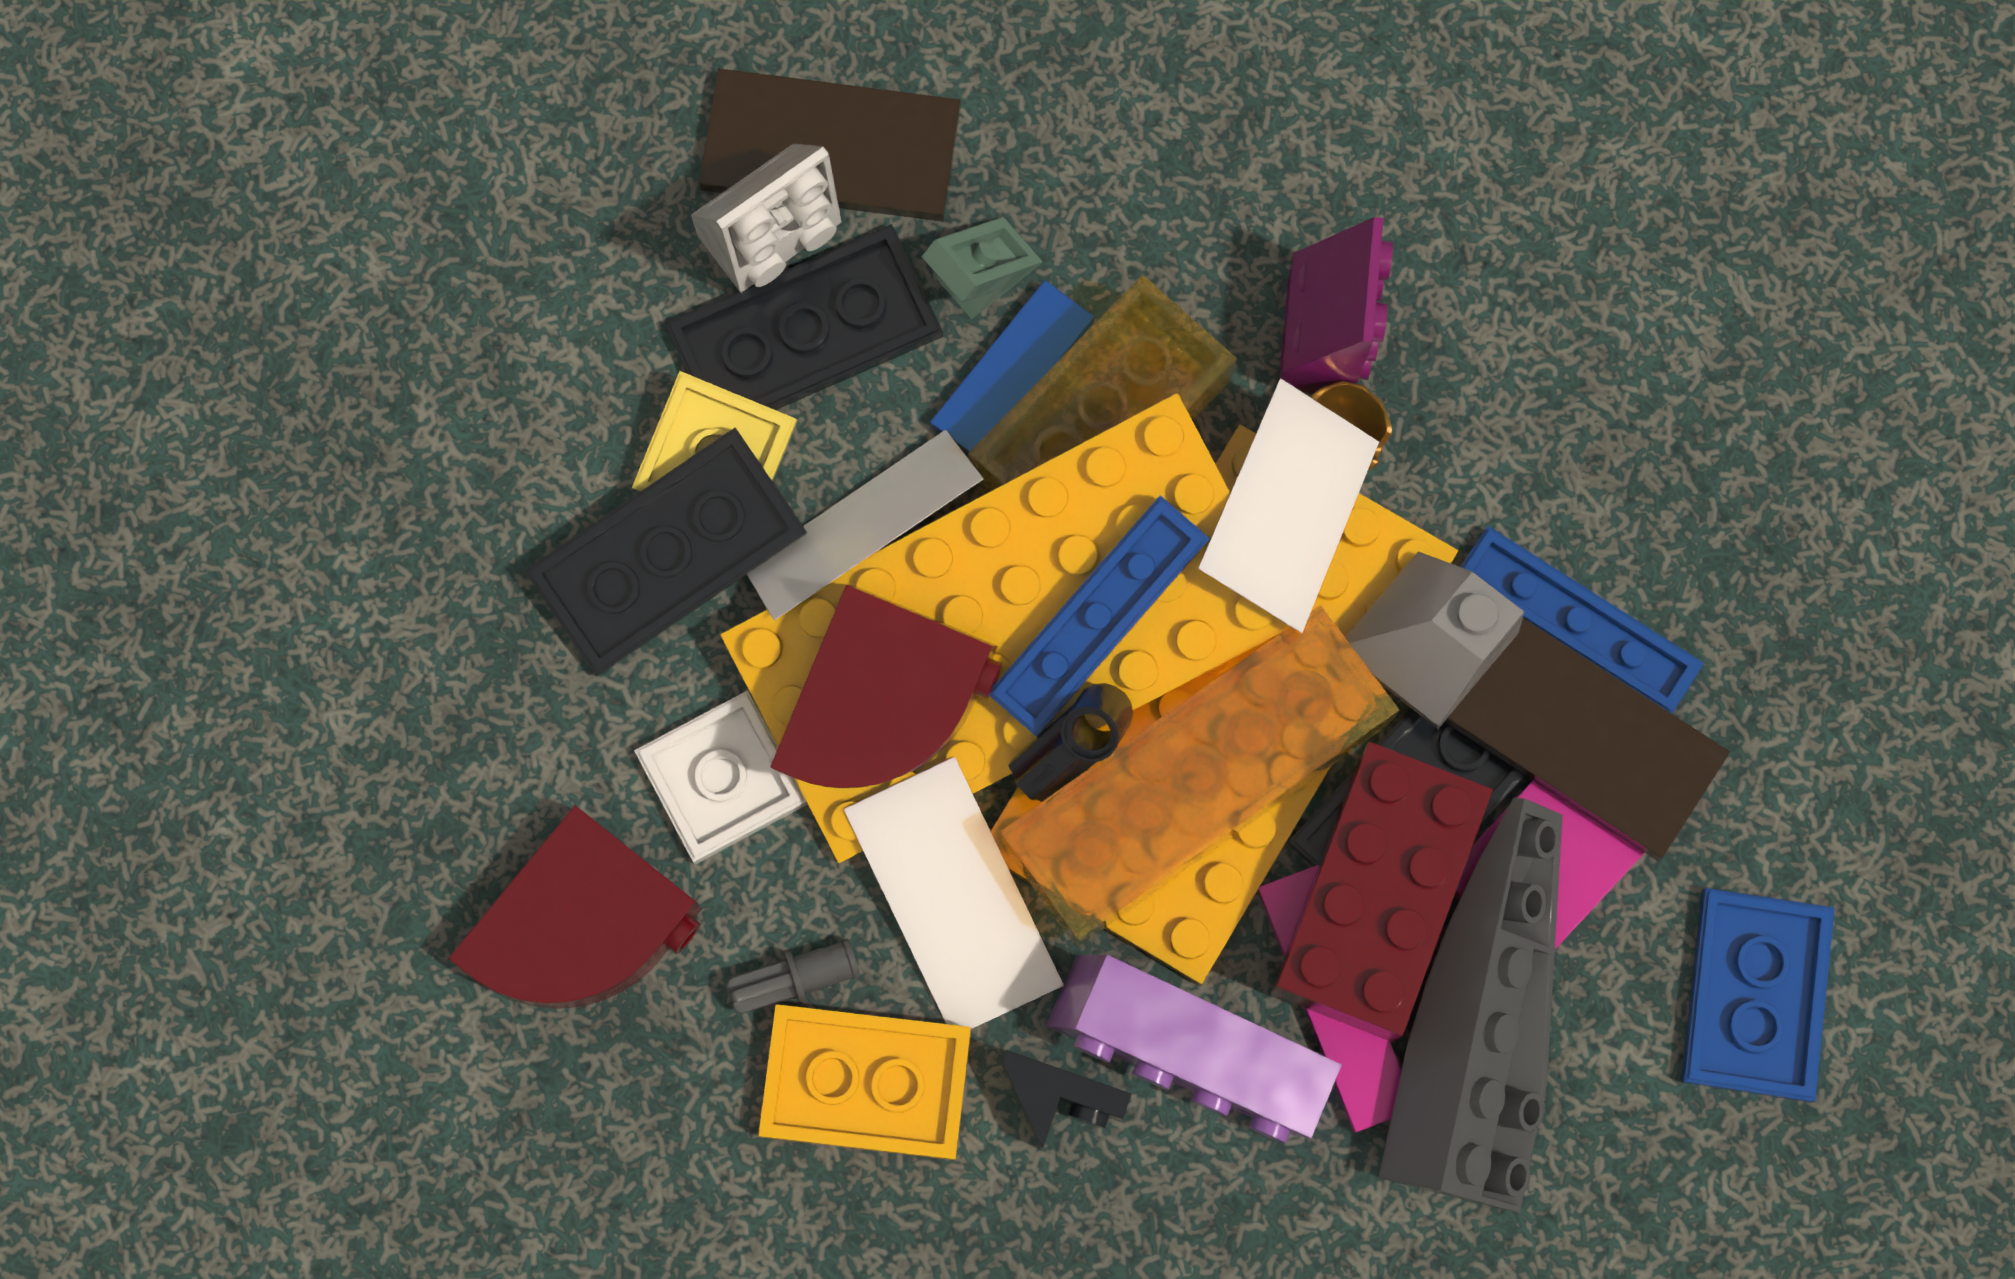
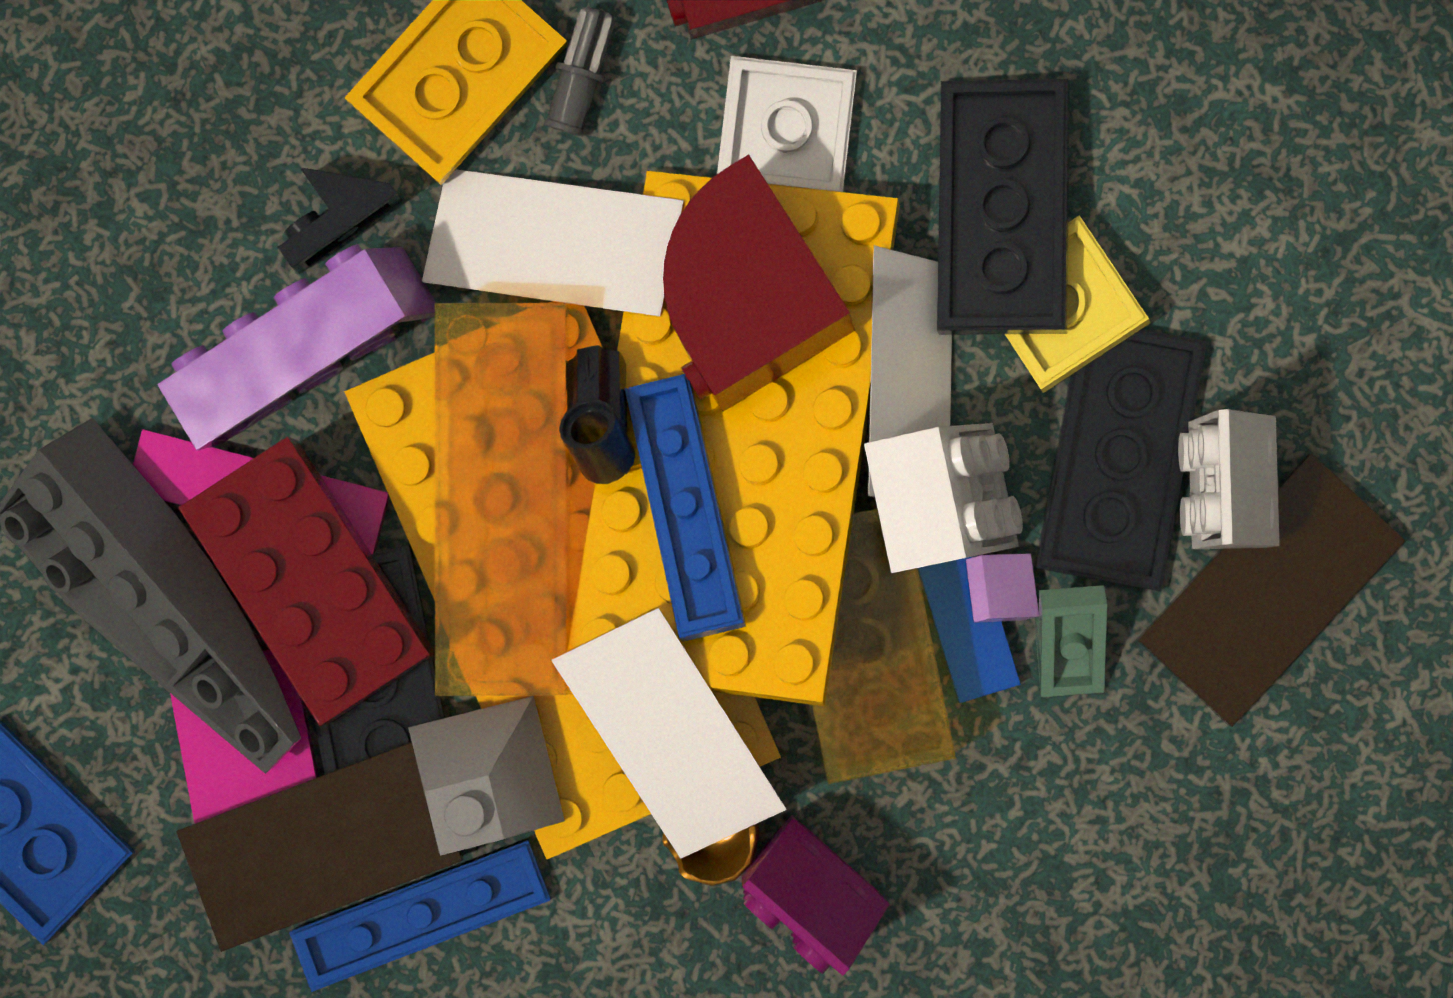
camera: 125 degrees right, 10 degrees up
(942, 423) = (943, 495): none -> white slope
(978, 343) = (1002, 587): none -> lavender tile

